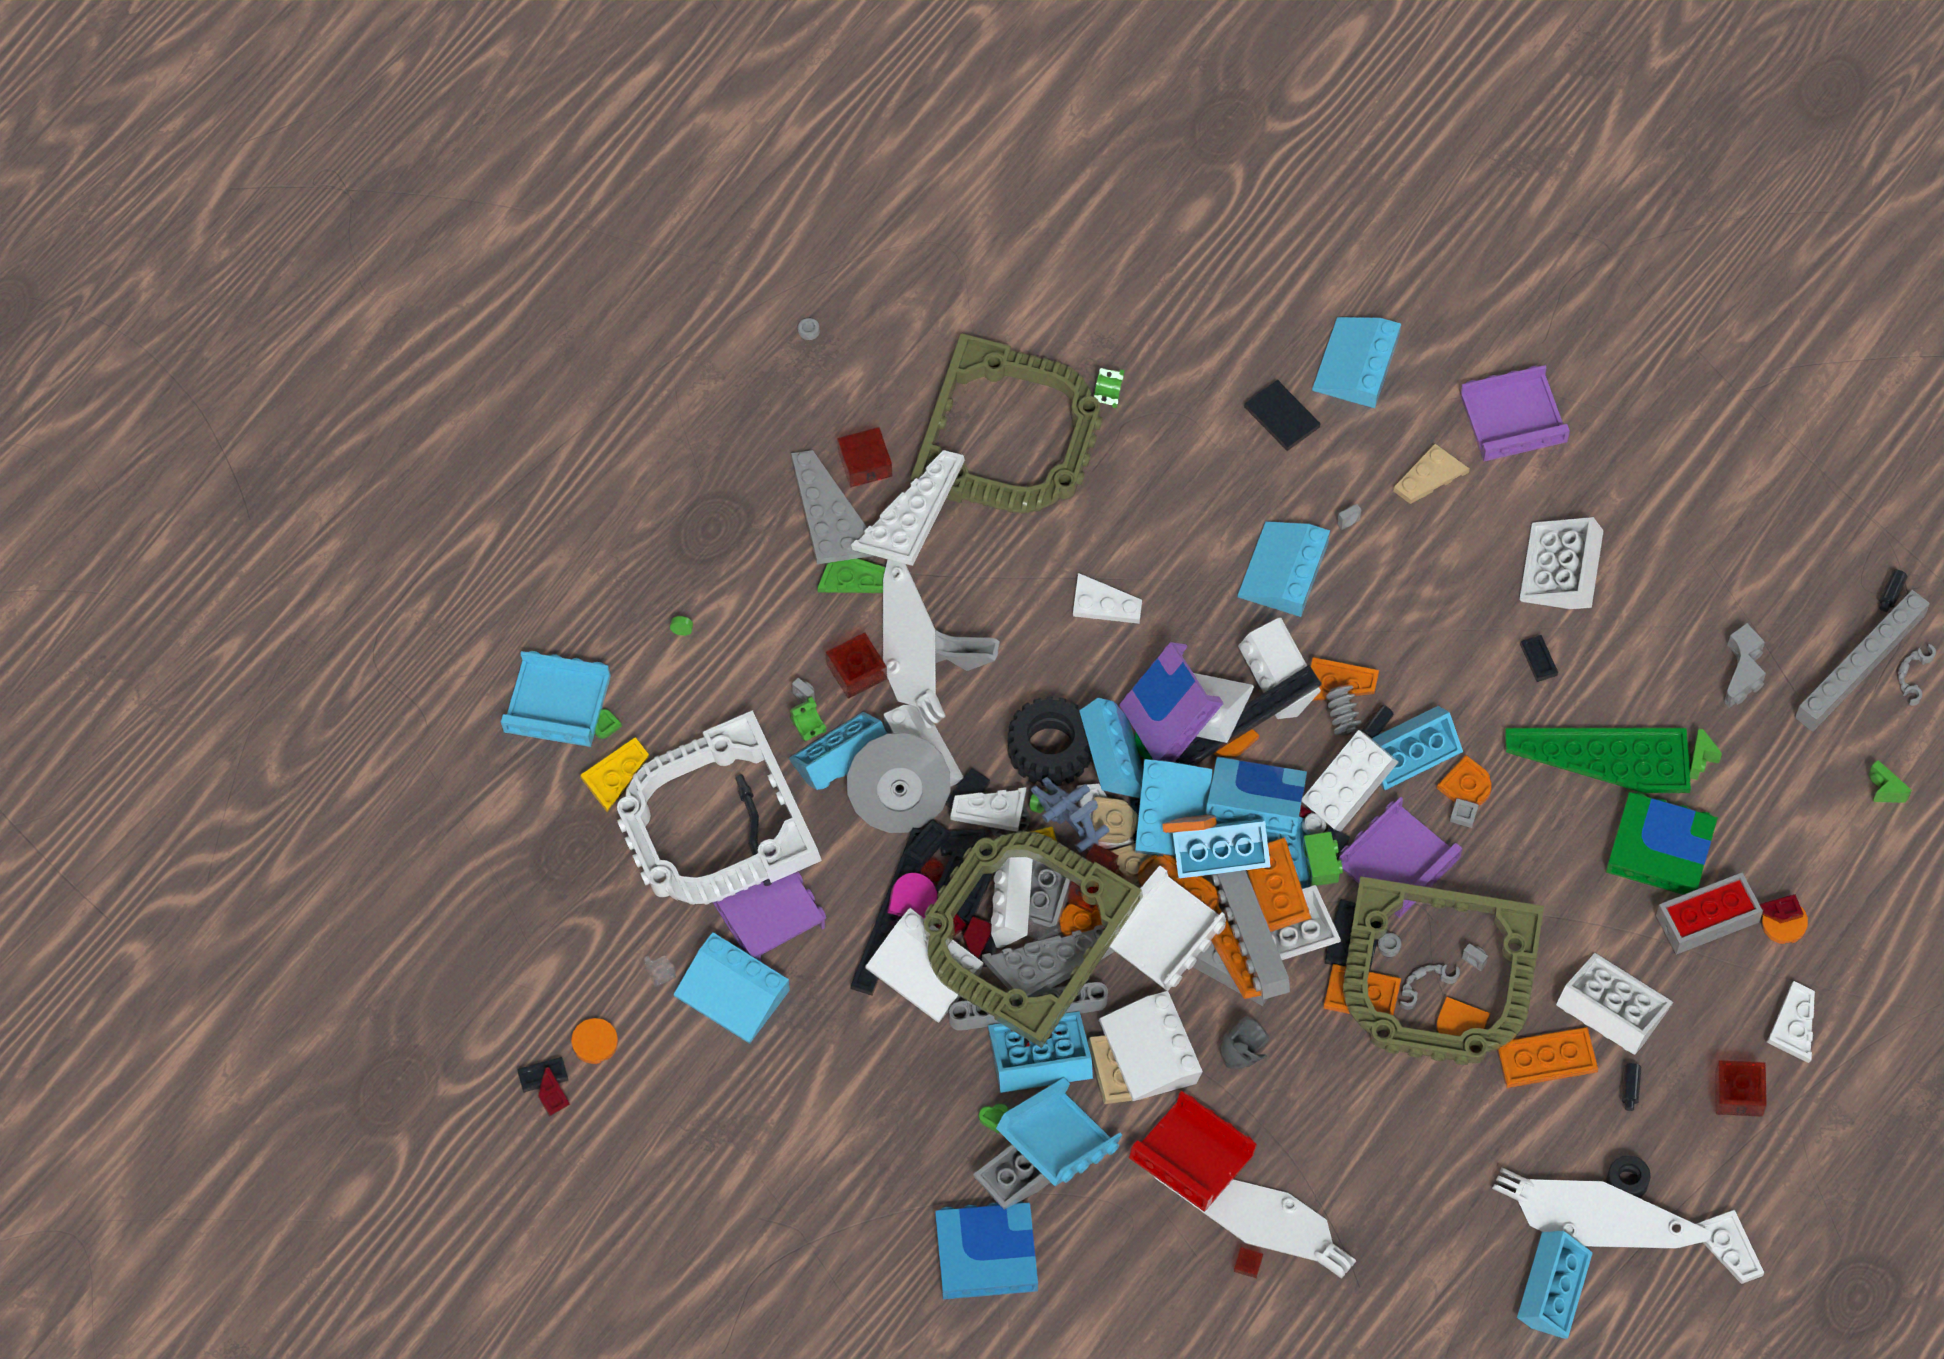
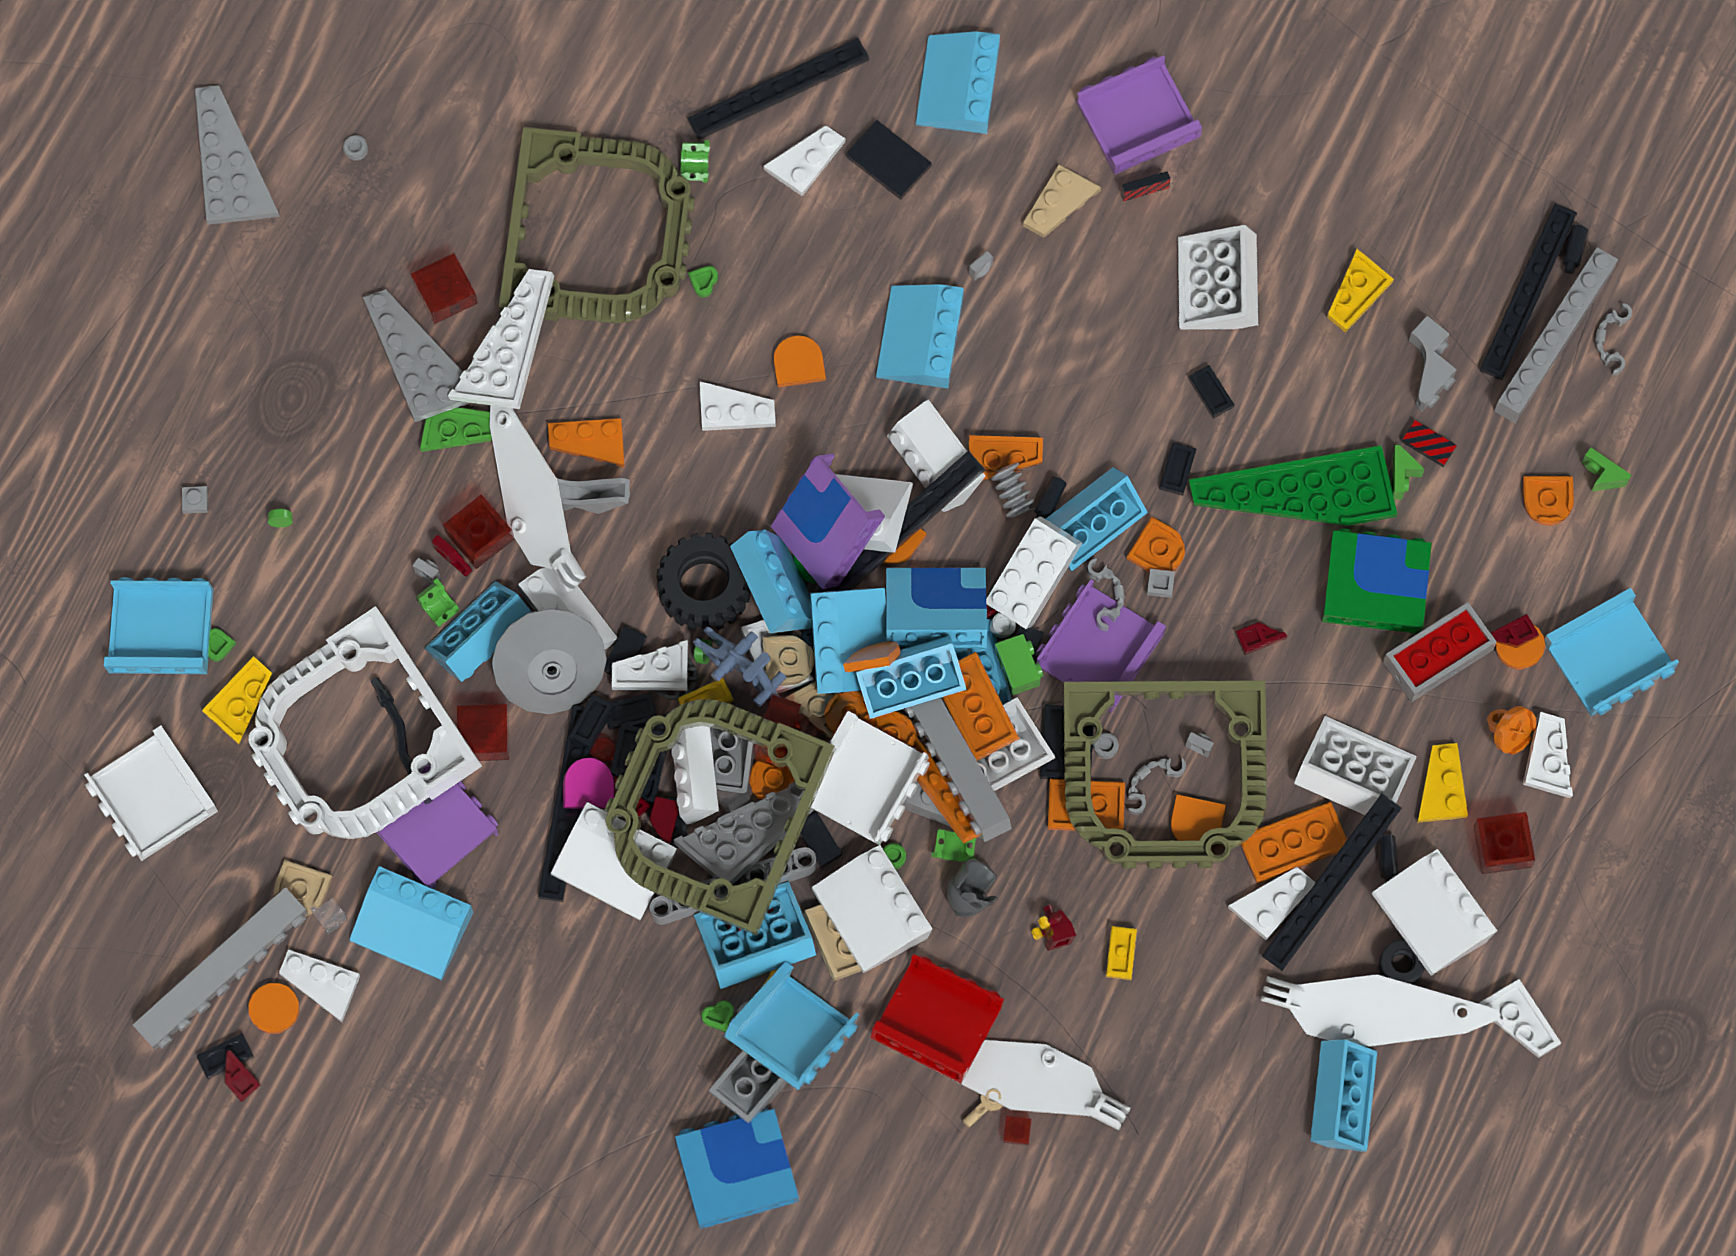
camera: 10 degrees left, 10 degrees up
(521, 840) = (151, 795): none -> white panel
(553, 997) = (220, 969): none -> light grey brick
(609, 598) = (195, 499): none -> light grey plate
(638, 941) = (304, 884): none -> tan tile
(643, 1026) = (323, 982): none -> white wing
(693, 331) = (230, 175): none -> light grey wing
(827, 682) = (451, 555): none -> dark red tile
(831, 834) = (485, 730): none -> clear red brick
(973, 606) = (590, 438): none -> orange wing
(1097, 489) = (703, 280): none -> bright green tile
(1112, 977) = (820, 840): none -> black tile
(1170, 571) = (798, 362): none -> orange tile
(1182, 1005) = (895, 854): none -> bright green tile
(1194, 340) = (778, 89): none -> black tile
(1208, 404) = (806, 160): none -> white wing
(1224, 1236) = (985, 1105): none -> tan plate
(1235, 1006) = (953, 848): none -> bright green piece
(1316, 1093) = (1055, 928): none -> dark red piece
(1371, 1125) = (1121, 953): none -> yellow plate
(1424, 814) = (1118, 591): none -> light grey piece
(1497, 719) = (1178, 469): none -> black tile
(1510, 474) = (1145, 186): none -> black tile
(1519, 1106) = (1273, 903): none -> white wing
(1545, 874) = (1257, 637): none -> dark red tile
(1575, 1094) = (1331, 882): none -> black tile
(1666, 1137) = (1434, 912): none -> white slope
(1688, 594) = (1359, 290): none -> yellow wing
(1693, 1032) = (1444, 787): none -> yellow wing
(1730, 735) = (1429, 443): none -> tile
(1765, 991) = (1513, 729): none -> orange tile
(1832, 800) = (1548, 498): none -> orange tile
(1843, 621) = (1528, 291): none -> black tile
(1865, 942) = (1609, 654): none -> medium azure panel

